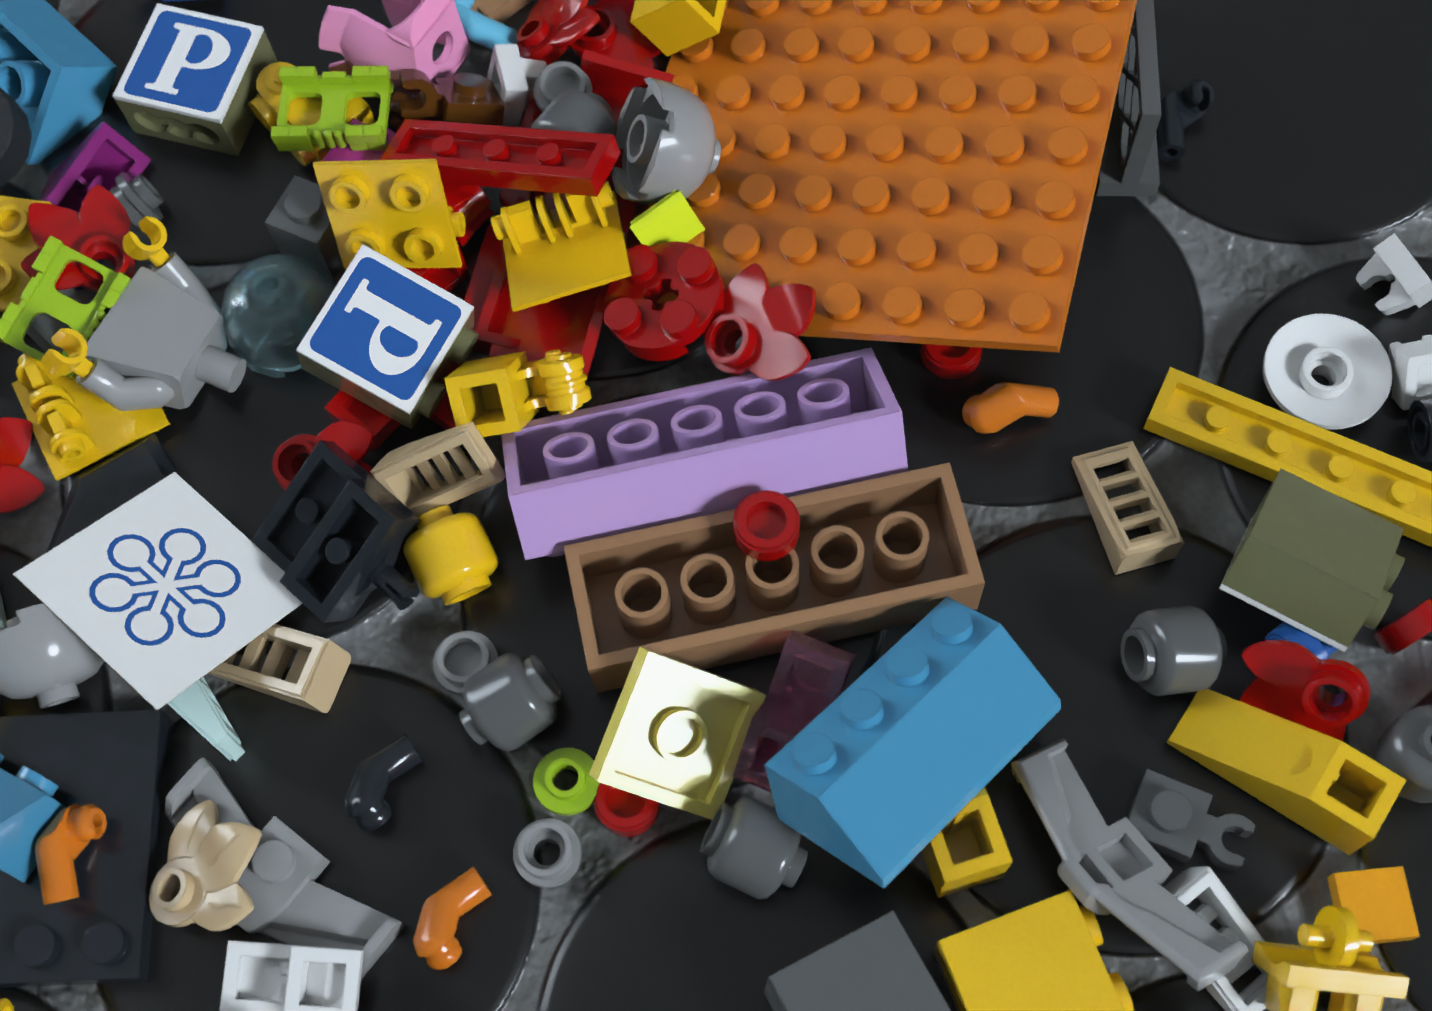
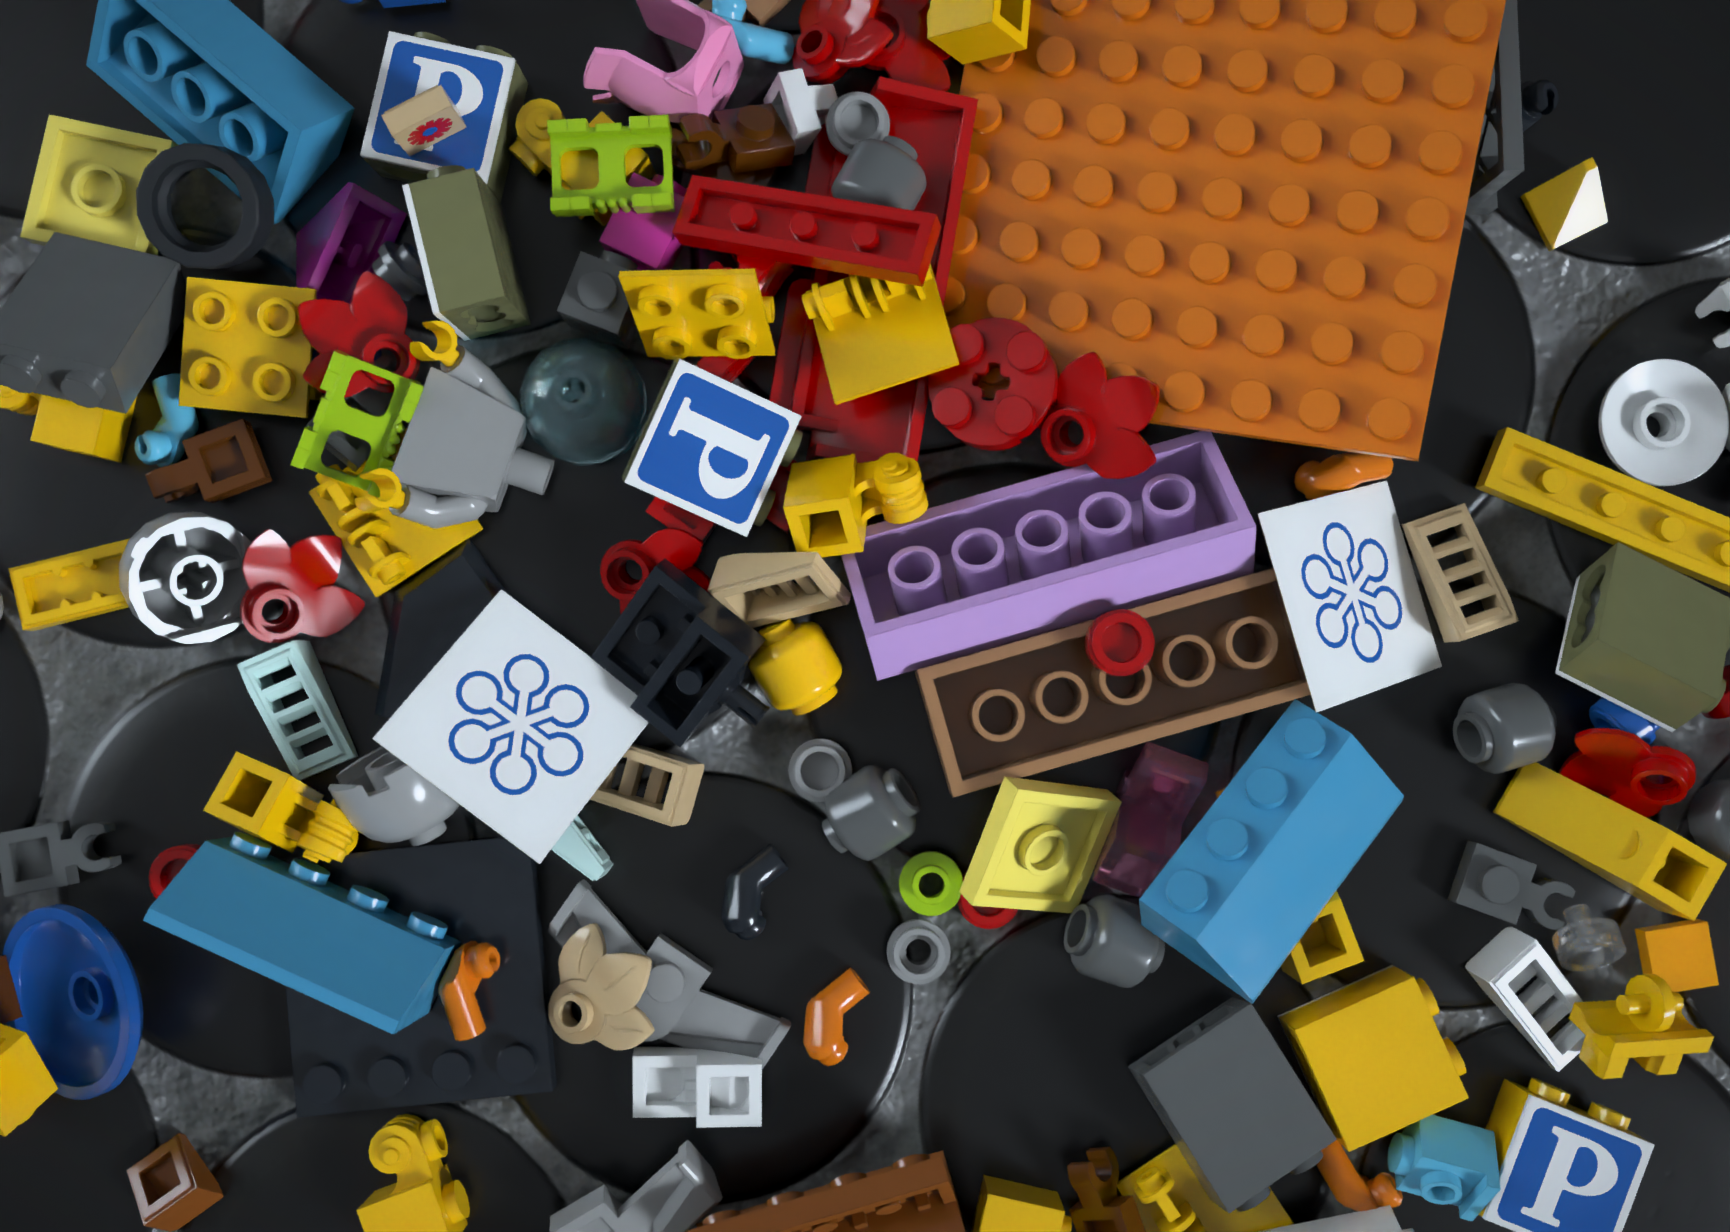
camera: 10 degrees left, 20 degrees up
(170, 61) = (423, 120): none -> tan tile
(192, 178) = (466, 253): none -> olive piece
(664, 143) = (983, 203): light grey cylinder -> none
(667, 222) = (984, 289): neon yellow slope -> none
(1009, 507) = (1349, 593): none -> white sticker
(1119, 870) = (1451, 949): light grey plate -> none
(1228, 186) = (1567, 204): none -> yellow slope
(1270, 880) = (1587, 941): none -> clear tile

